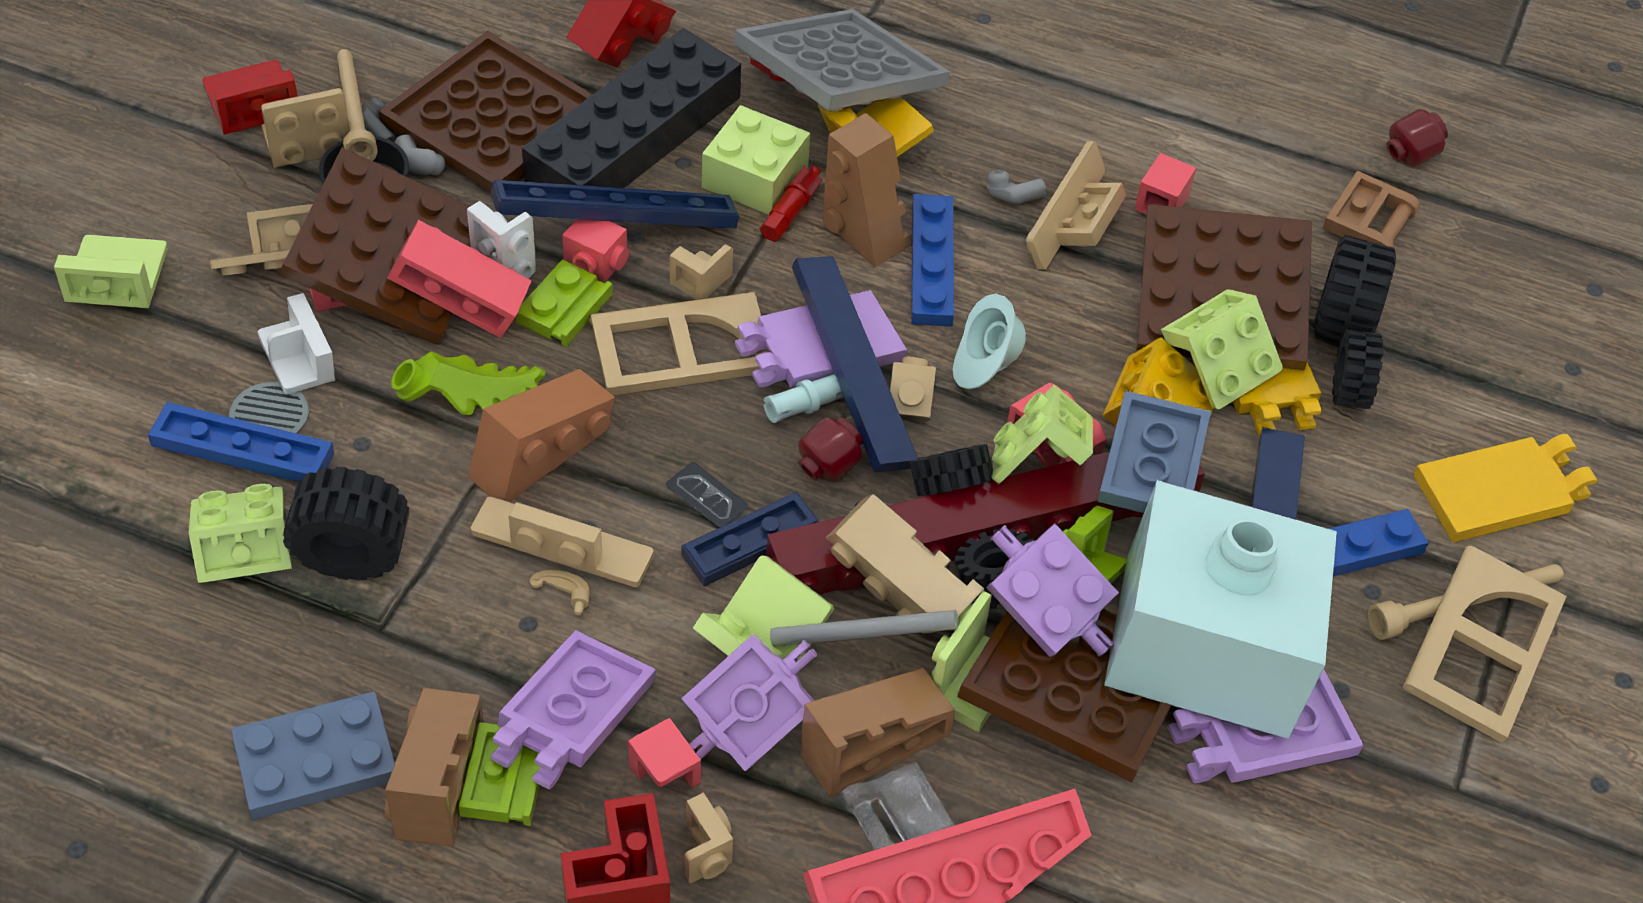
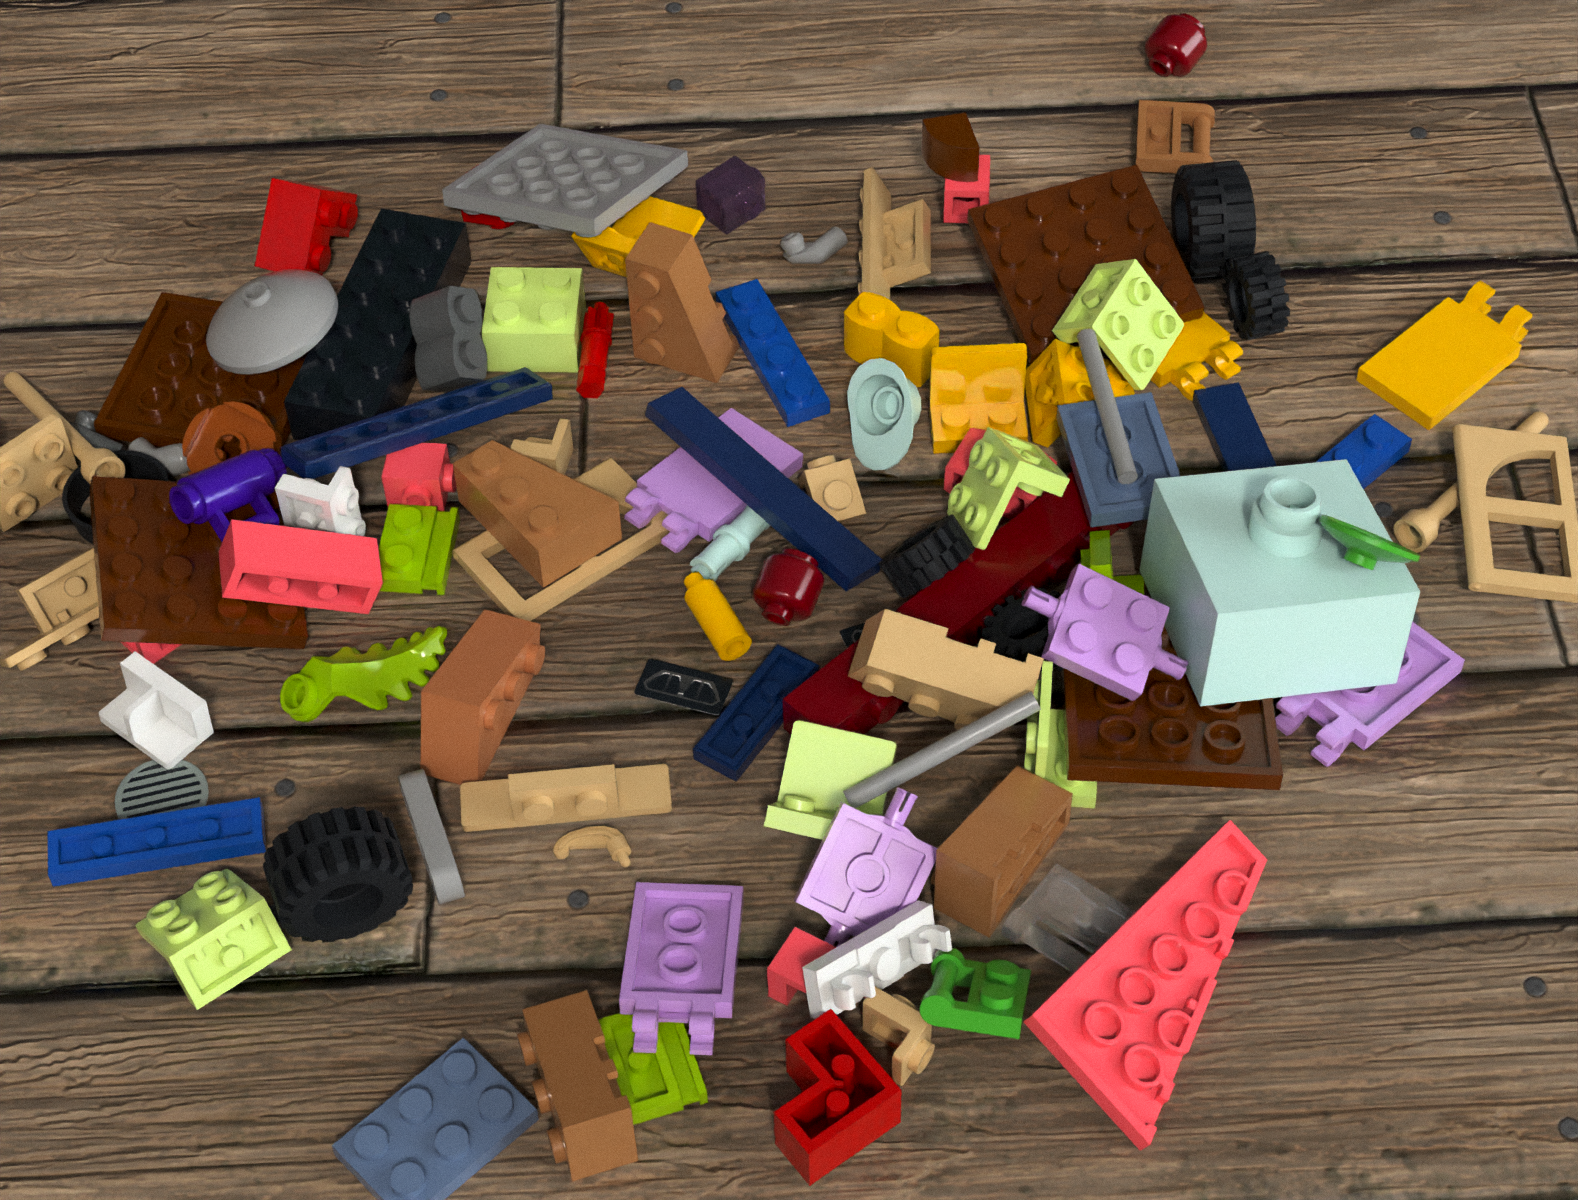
camera: 20 degrees left, 0 degrees up
(438, 196) = (227, 487): none -> dark purple piece
(441, 527) = (431, 836): none -> light grey beam
(467, 148) = (224, 424): none -> dark orange plate
(549, 82) = (271, 321): none -> light grey dish
(665, 310) = (536, 511): none -> medium nougat wedge
(674, 148) = (448, 339): none -> dark grey brick
(715, 770) = (874, 959): none -> white plate
(761, 450) = (716, 617): none -> yellow cylinder
(791, 850) = (994, 1000): none -> bright green plate
(971, 121) = (731, 194): none -> clear purple brick
(1031, 286) = (881, 330): none -> yellow brick
(1074, 355) = (976, 390): none -> yellow bracket
(1161, 147) = (951, 147): none -> reddish brown brick
(1163, 408) = (1107, 407): none -> light grey bar
(1296, 605) = (1366, 547): none -> bright green dish

